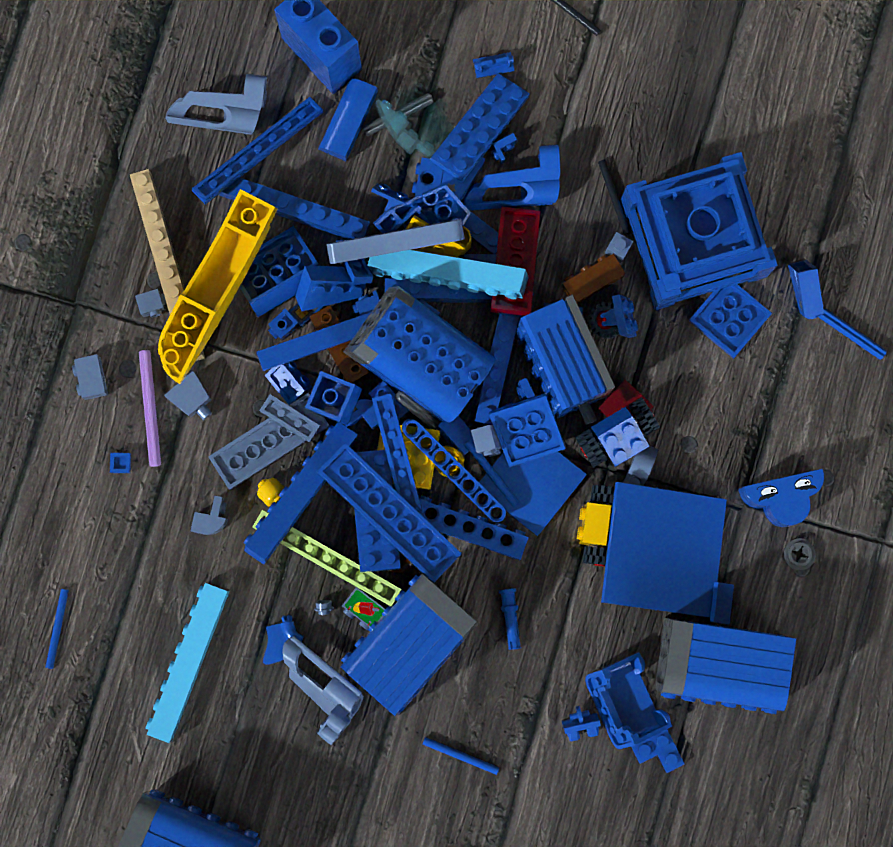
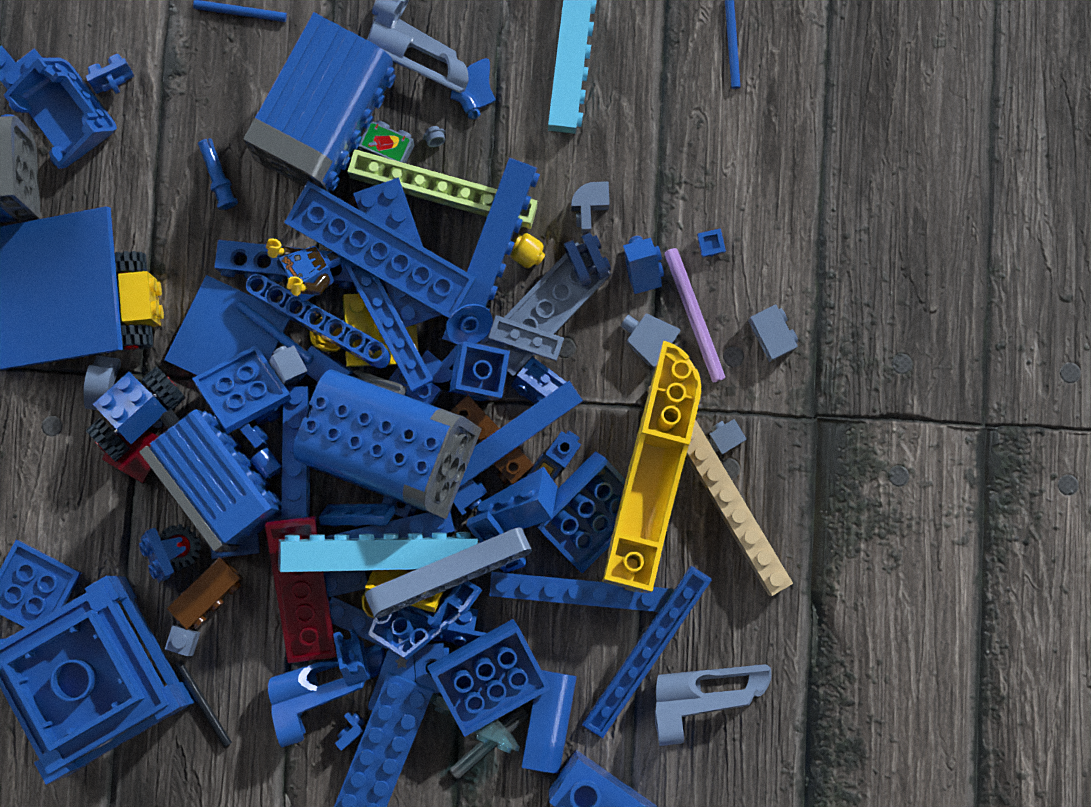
camera: 165 degrees right, 0 degrees up
(180, 456) = (643, 264): none -> blue brick
(215, 463) = (591, 246): none -> dark blue brick
(332, 436) = (469, 324): none -> blue dish
(384, 158) = (488, 677): none -> blue slope
(453, 513) = (306, 268): none -> torso
(459, 310) = (357, 514): none -> blue plate
(488, 200) = (351, 658): none -> blue hinge
(520, 365) = (266, 464): none -> blue piece

